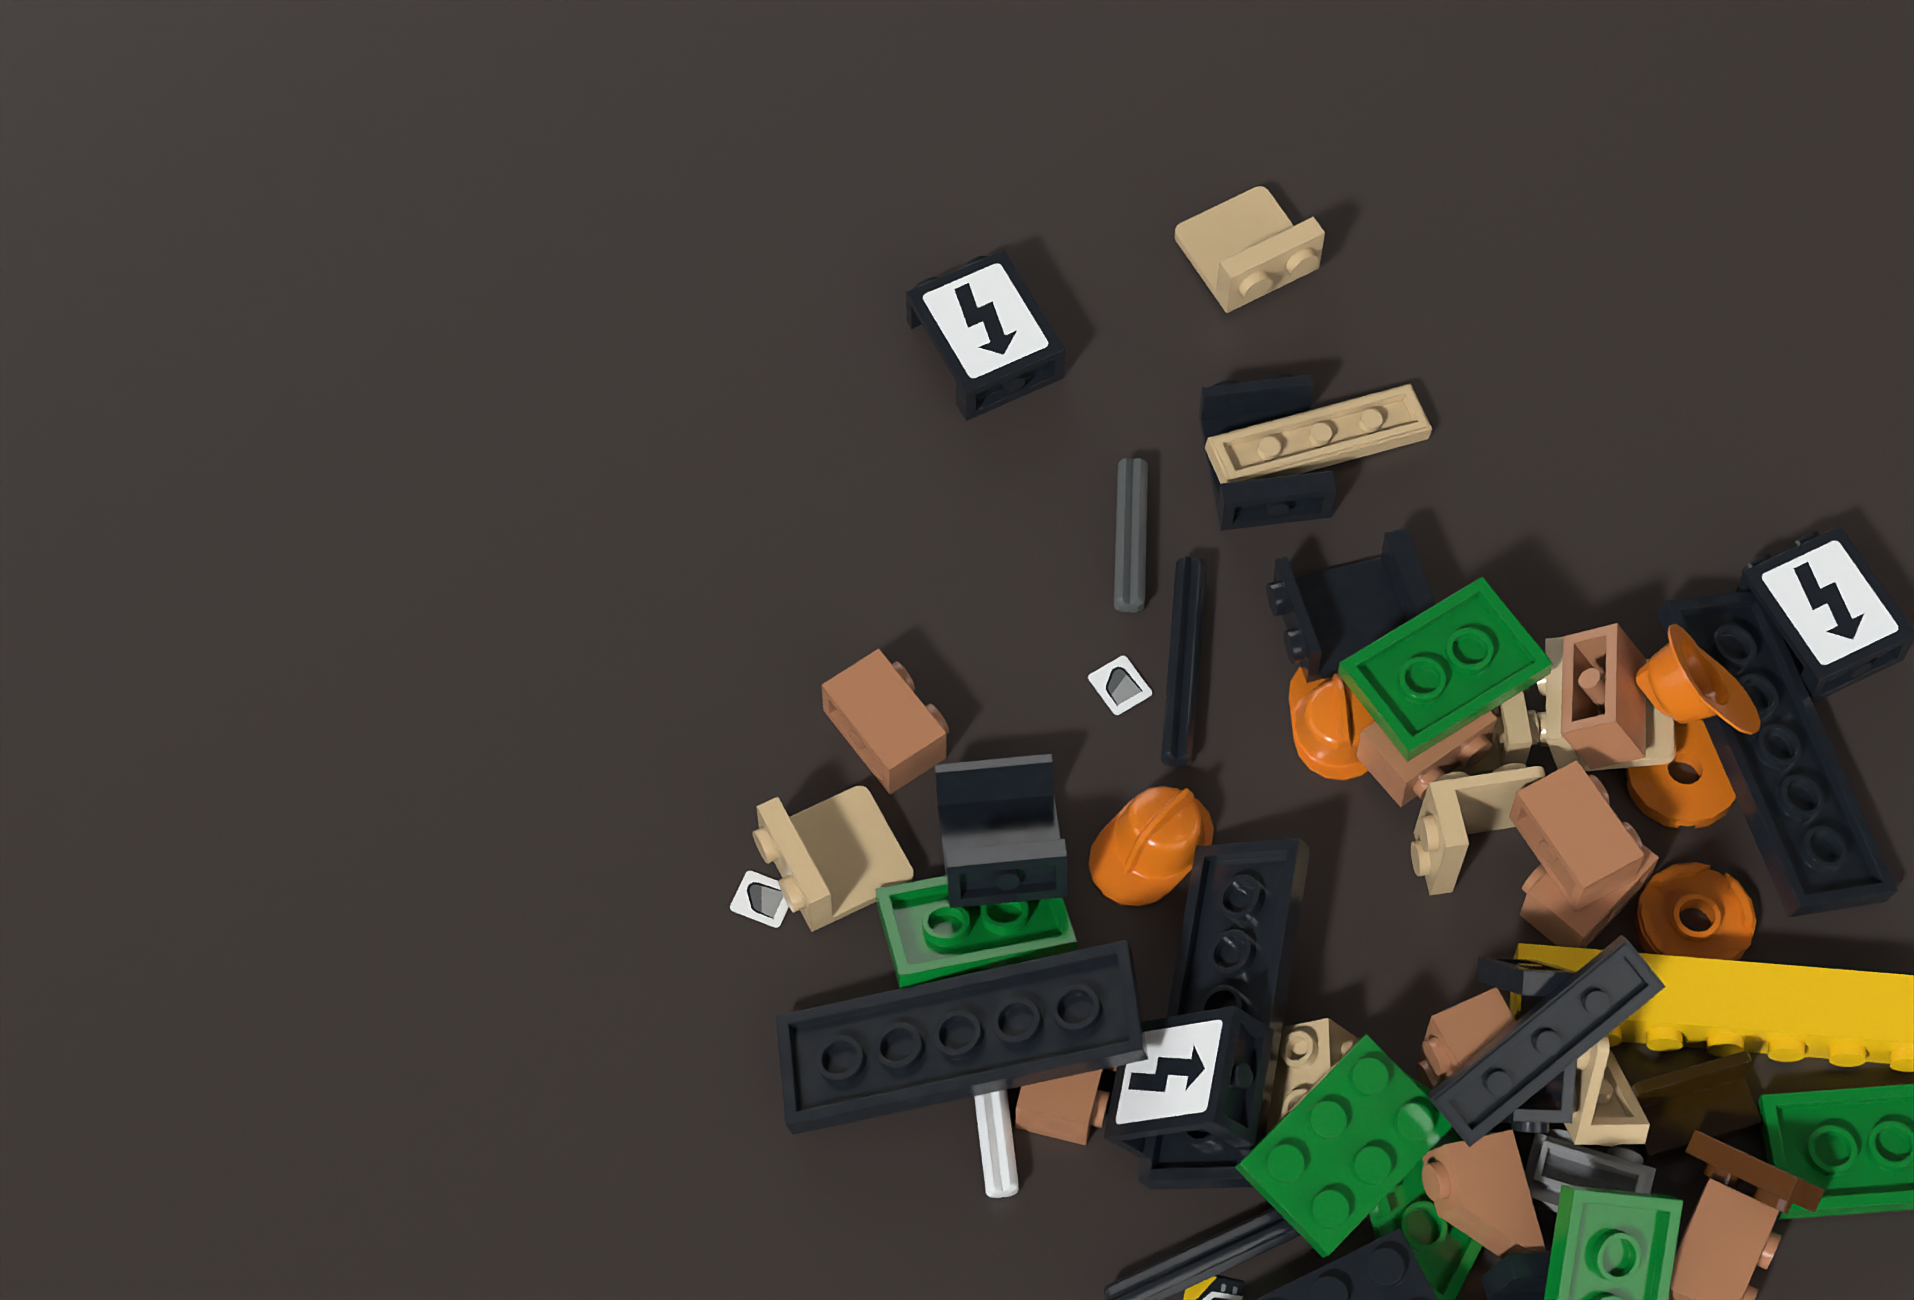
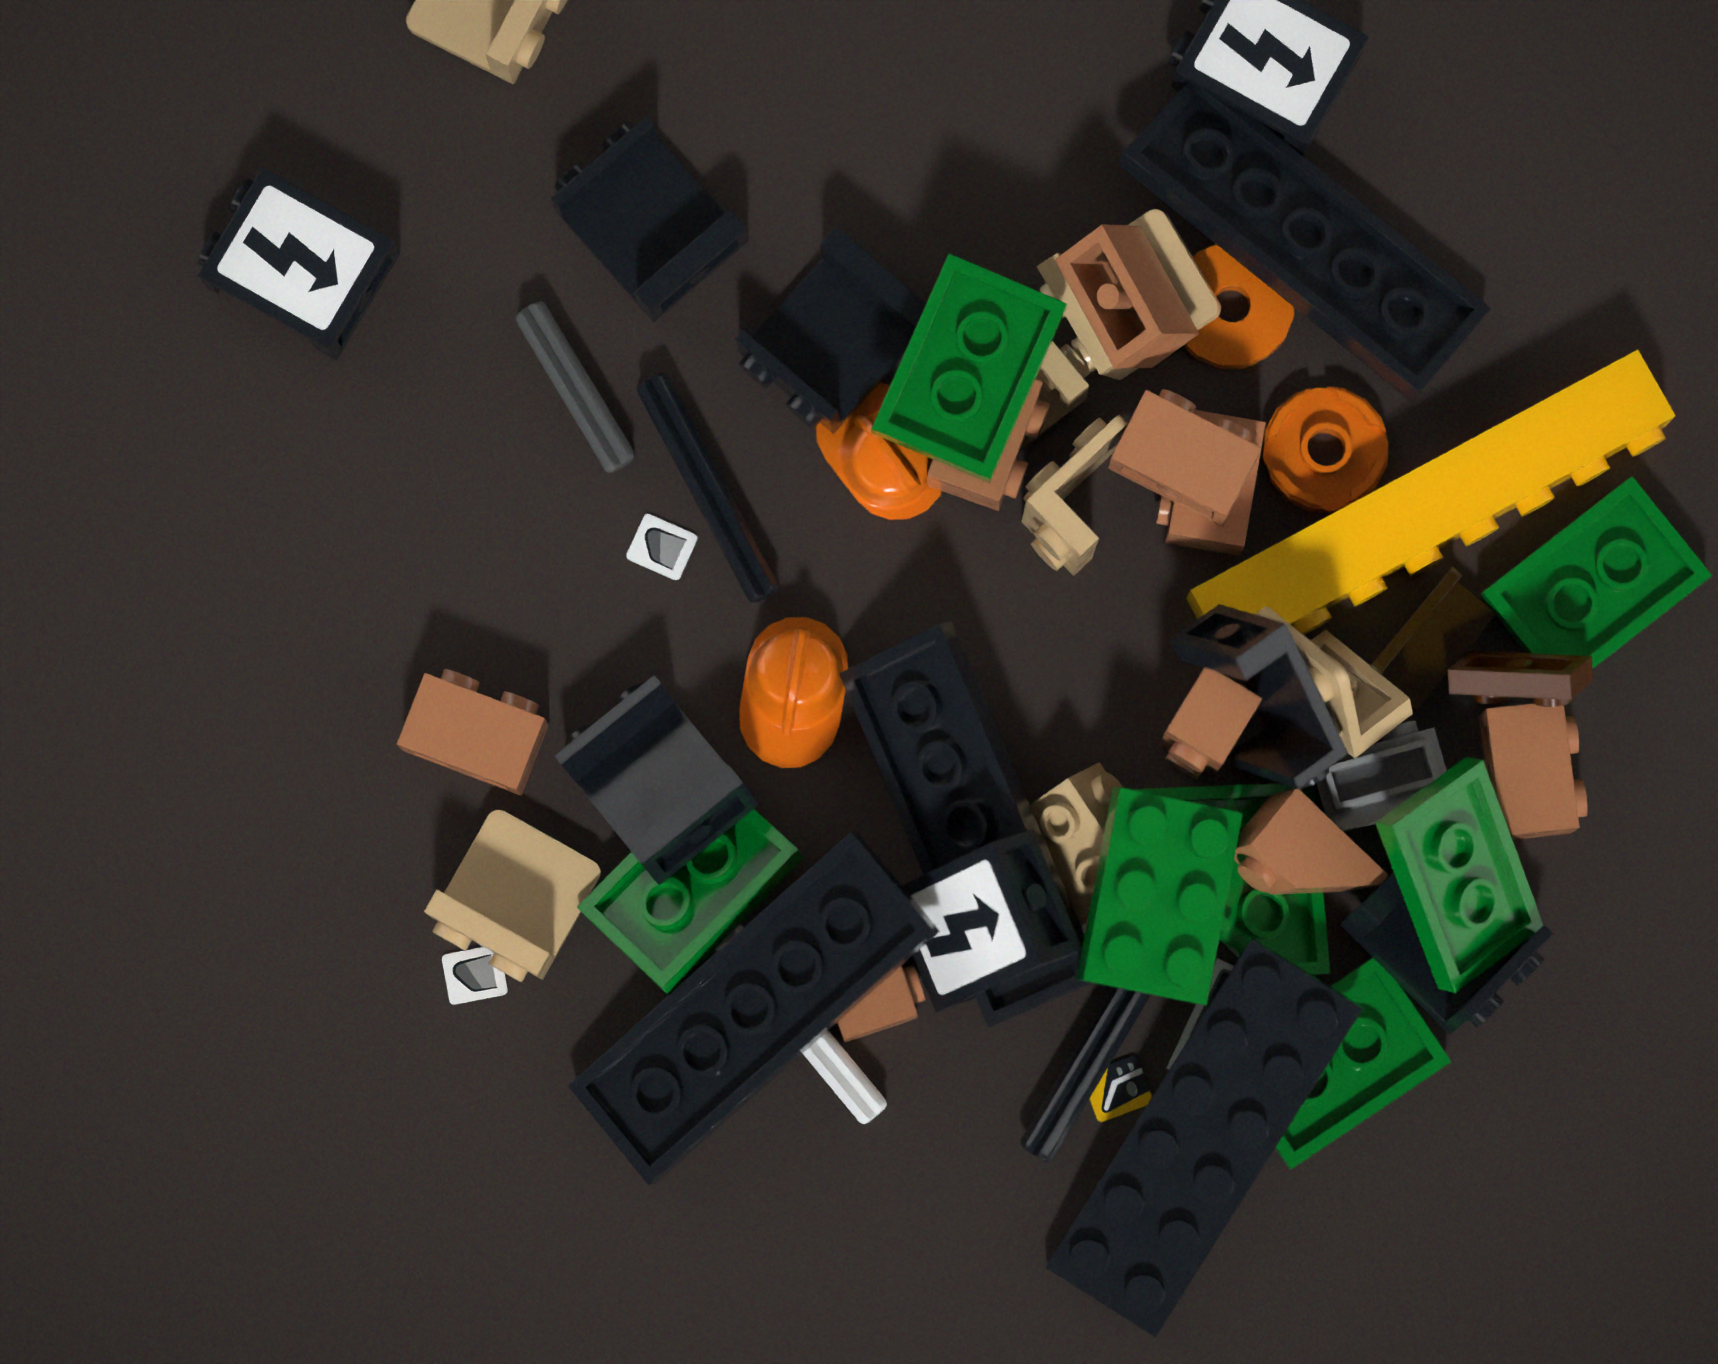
camera: 30 degrees left, 20 degrees up
(1320, 437) = (688, 170): tan tile -> none
(1546, 1040) = (1289, 705): black tile -> none
(1693, 686) = (1207, 231): orange piece -> none

